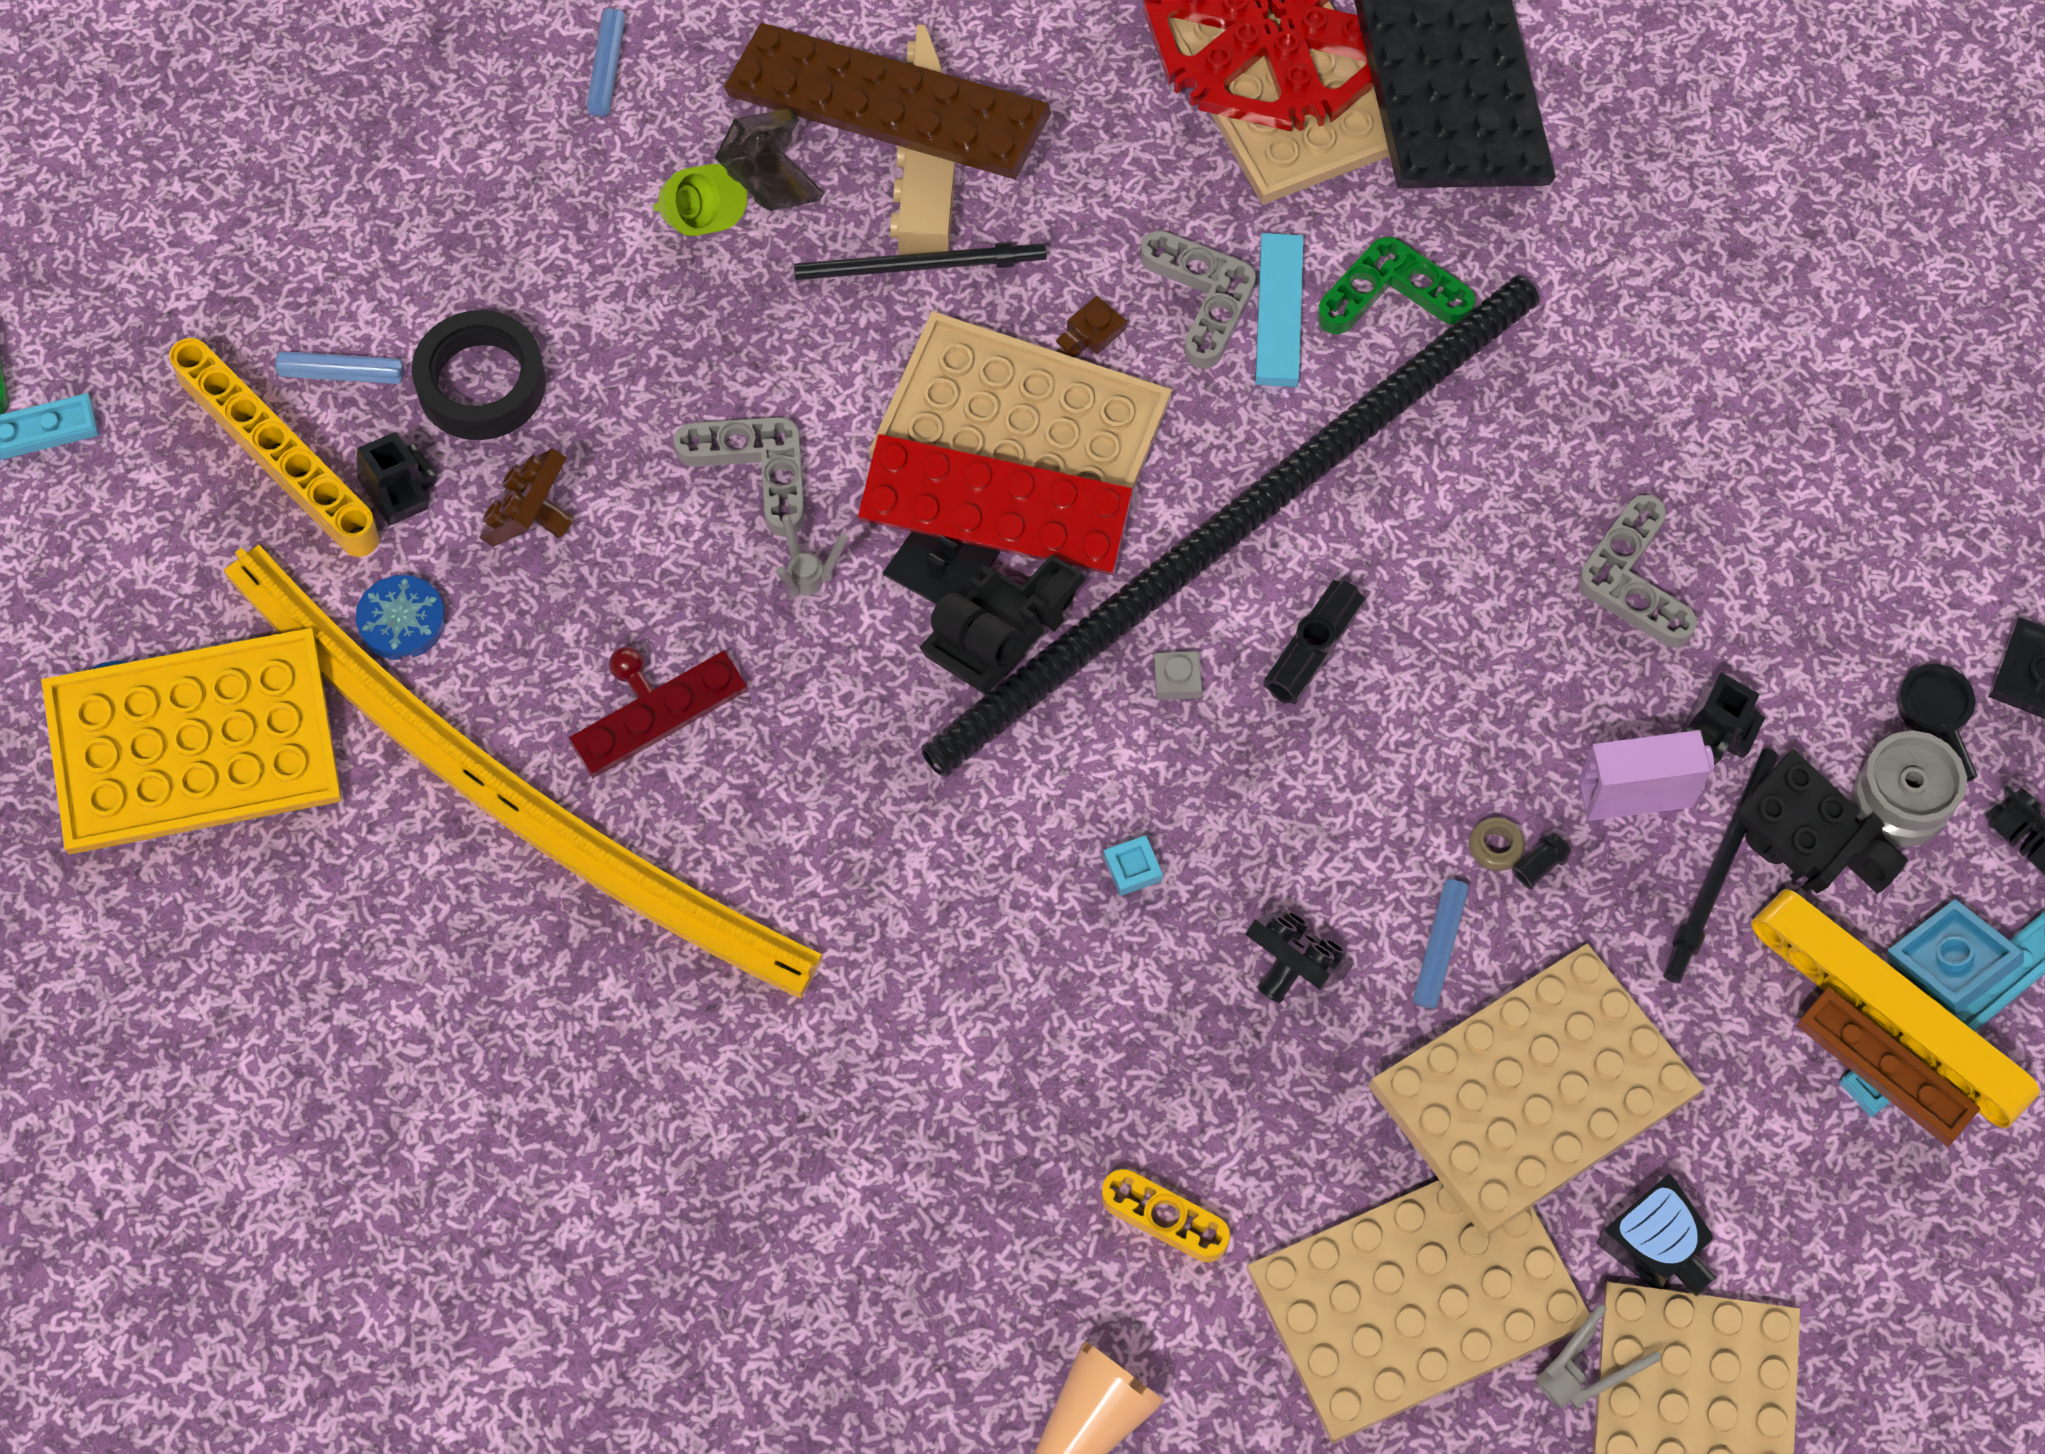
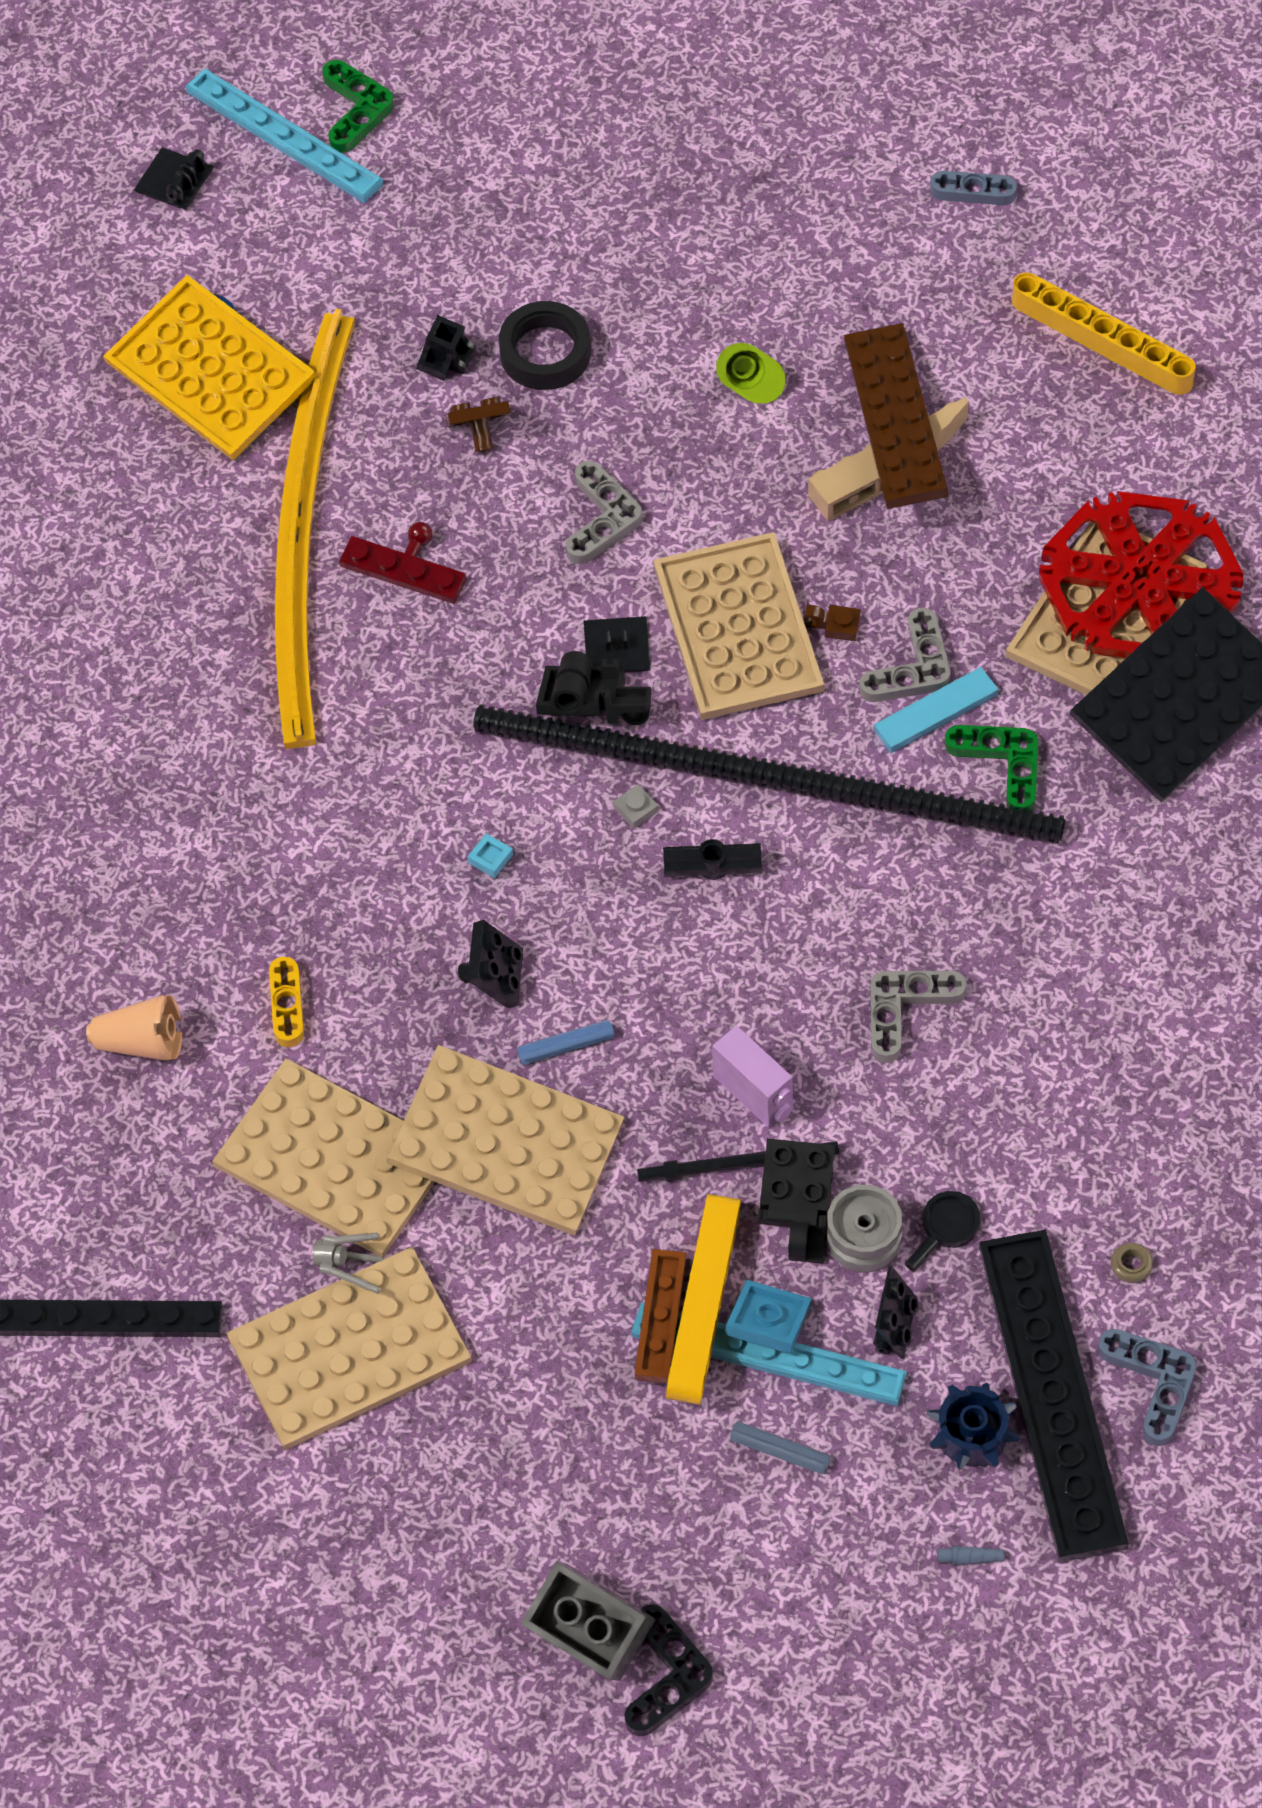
camera: 60 degrees right, 5 degrees down
(268, 430) = (418, 283): yellow beam -> none
(339, 367) = (495, 278): medium blue axle -> none
(400, 617) = (364, 412): blue tile -> none
(605, 62) = (810, 268): medium blue axle -> none
(756, 160) = (801, 385): clear smoke bracket -> none
(805, 570) = (548, 579): light grey plant -> none
(995, 504) = (667, 643): red plate -> none
(1002, 255) = (848, 544): black bar -> none
(1492, 860) = (655, 1046): dark tan piece -> none
(1541, 860) = (662, 1062): black pin -> none
(1661, 1239) = (460, 1258): torso -> none
(1726, 717) = (833, 1103): black brick -> none

